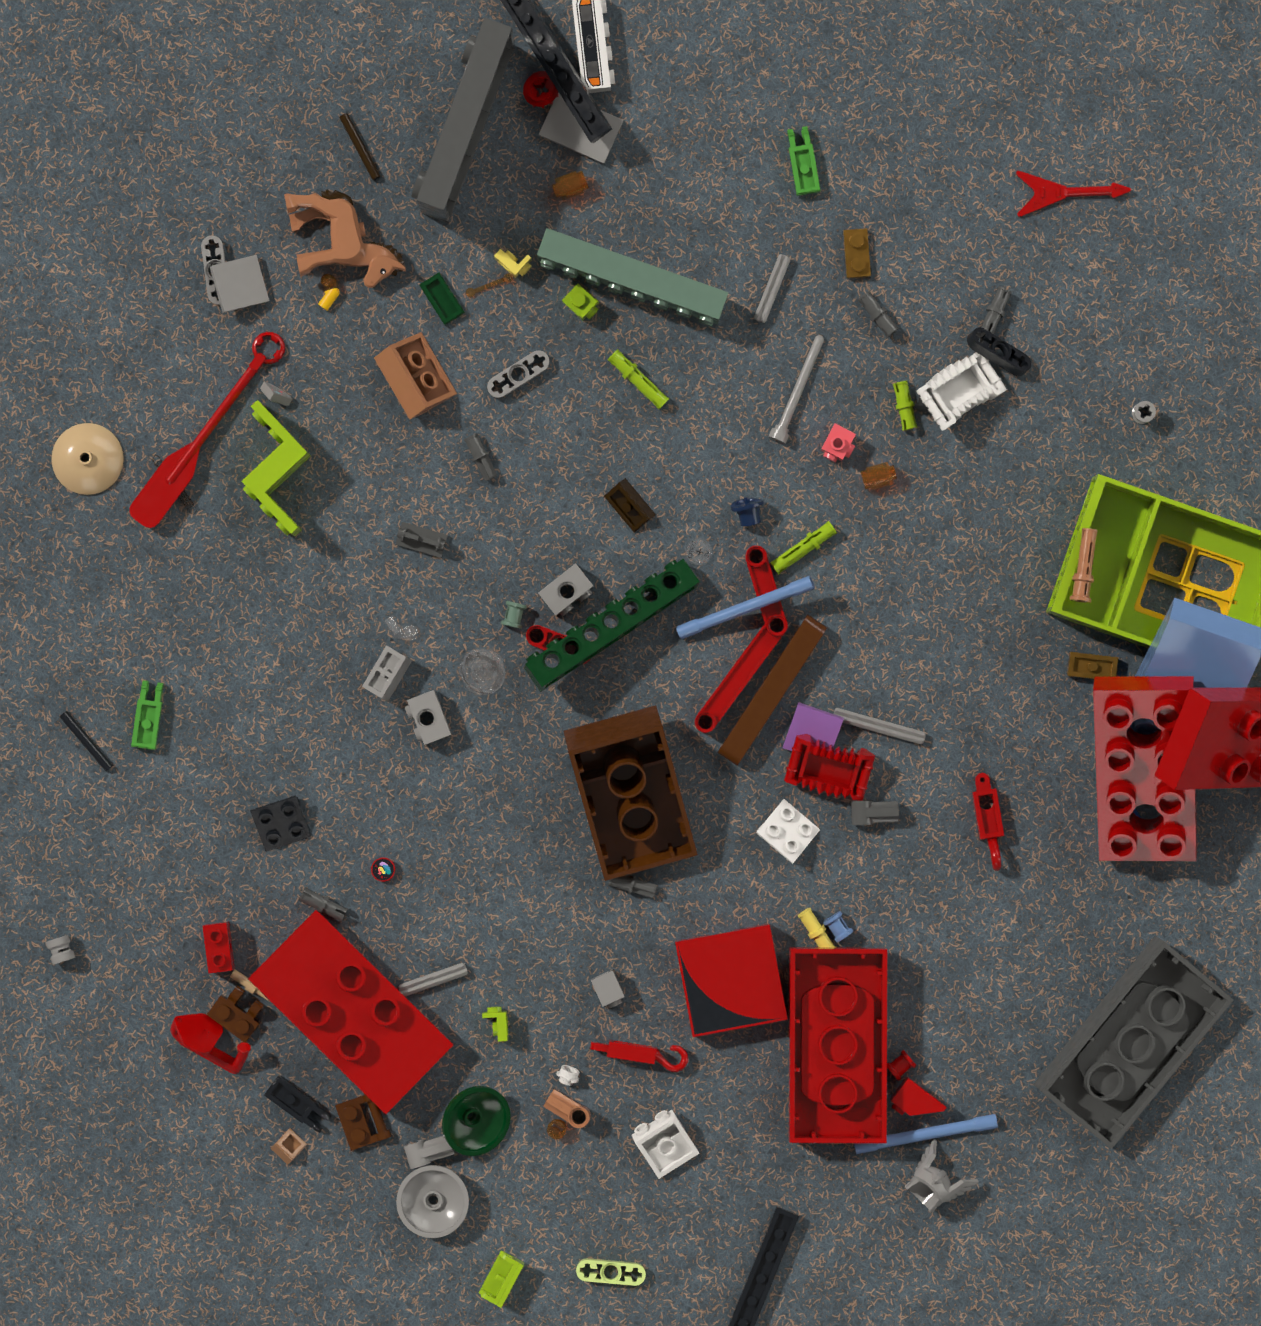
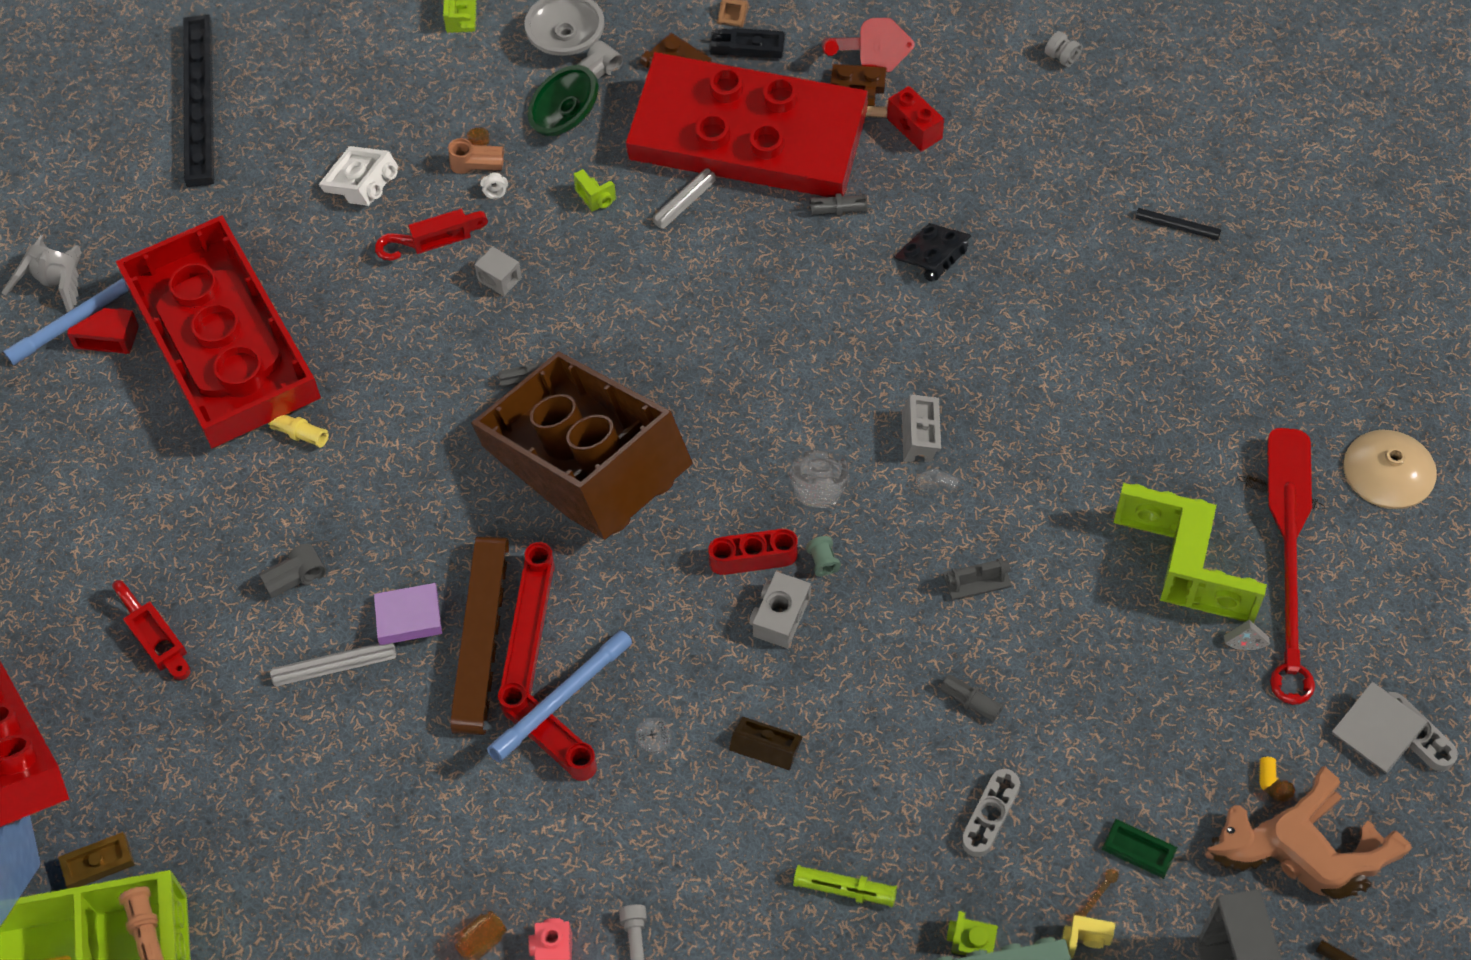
camera: 155 degrees right, 30 degrees down
(147, 718) = (1135, 270): bright green hinge -> none
(383, 869) = (799, 263): tile -> none
(415, 375) = (1107, 742): nougat slope -> none
(439, 728) = (856, 425): light grey brick -> none
(545, 676) = (747, 491): dark green brick -> none
(629, 1268) = (371, 47): yellowish green beam -> none
(731, 980) = (369, 338): red tile -> none
(748, 510) = (621, 808): dark blue piece -> none
(788, 831) = (383, 504): white hinge -> none
(802, 548) = (528, 805): lime pin -> none
(829, 768) = (367, 583): red piece -> none
(838, 926) = (276, 444): medium blue bush -> none
(901, 1065) = (139, 354): red bush -> none

